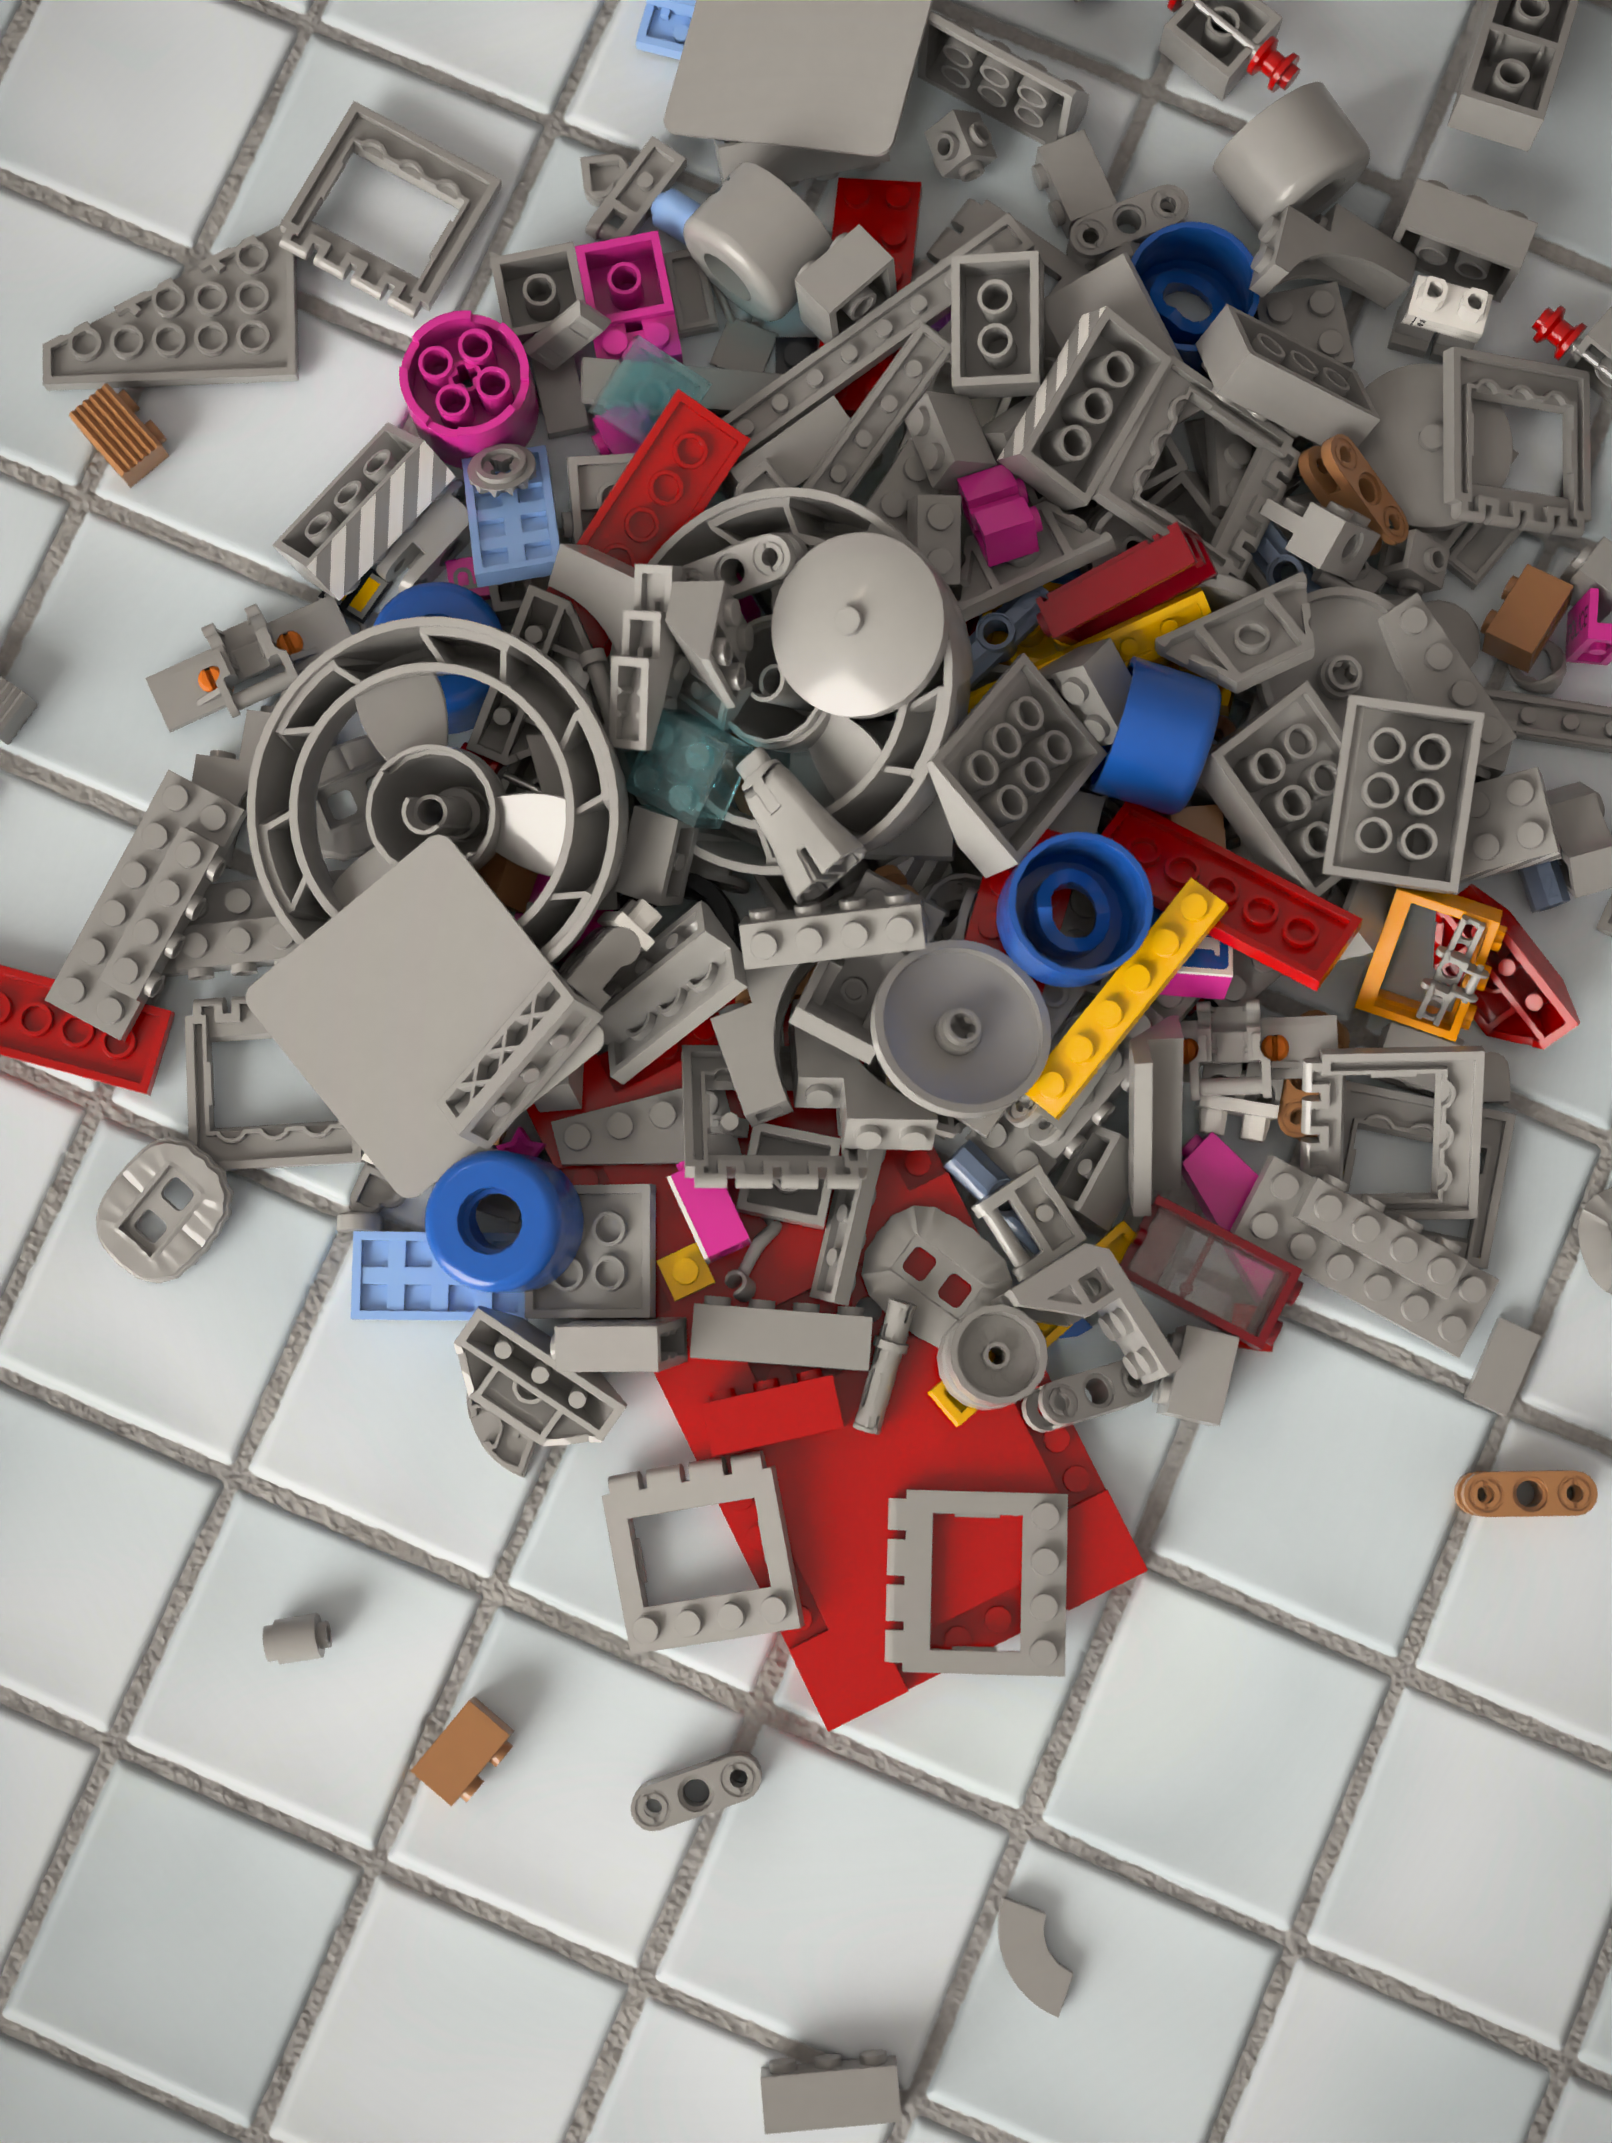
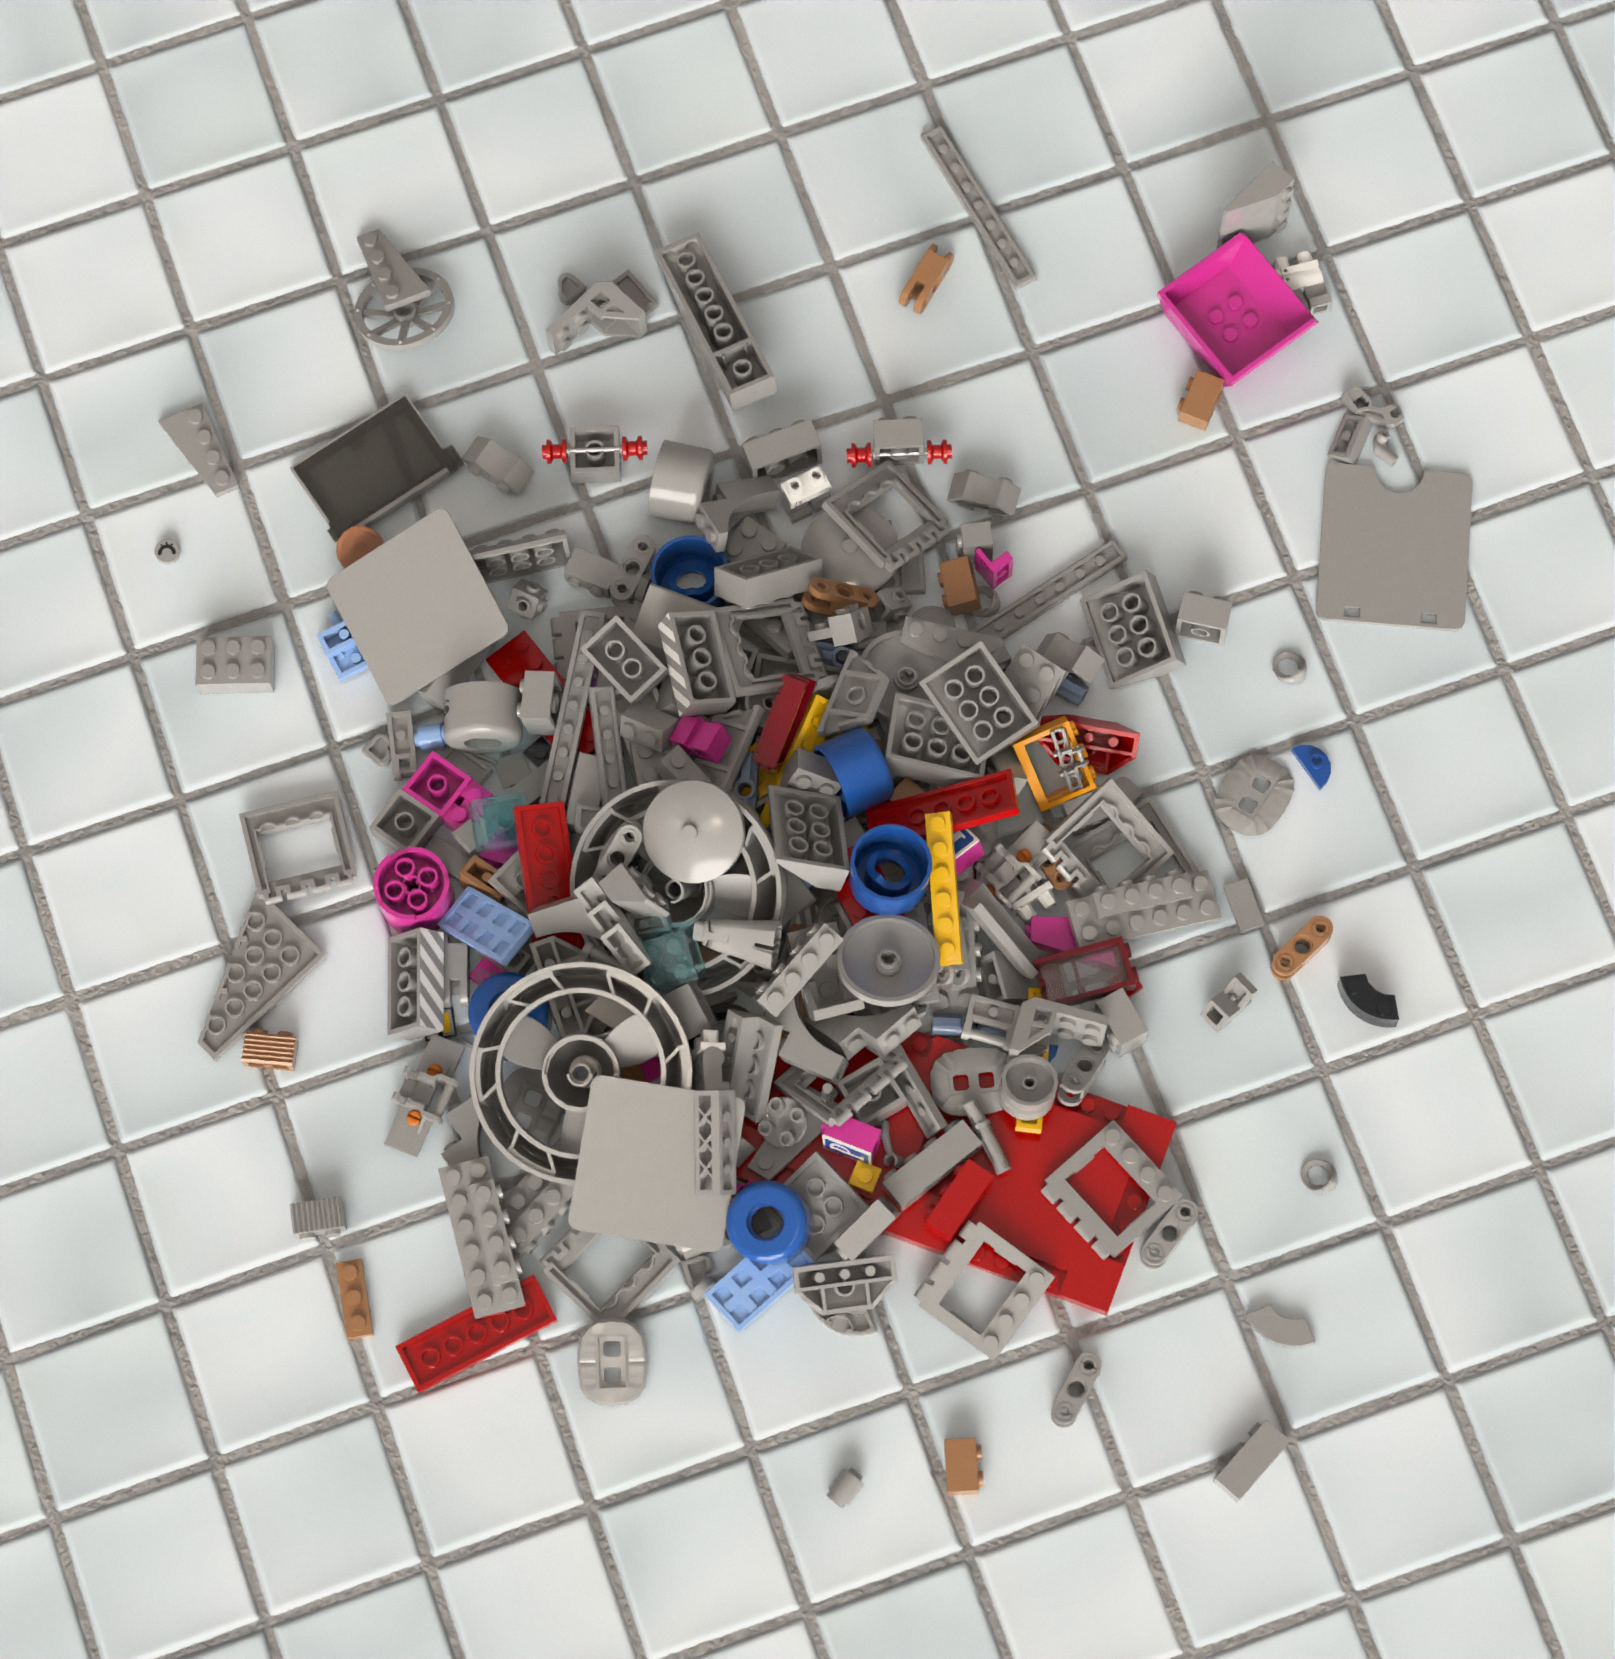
camera: 40 degrees left, 10 degrees down
(502, 458) = (457, 907): light grey gear -> none
(566, 335) = (435, 828): light grey tile -> none
(566, 437) = (476, 875): none -> medium nougat brick
(643, 1109) = (783, 1122): none -> light grey dish
(978, 1697) = (1179, 1224): none -> light grey piece
(1288, 1816) = (1329, 1186): none -> light grey piece
(1363, 1478) = (1229, 1003): none -> light grey brick
(1543, 1644) = (1367, 1002): none -> black brick

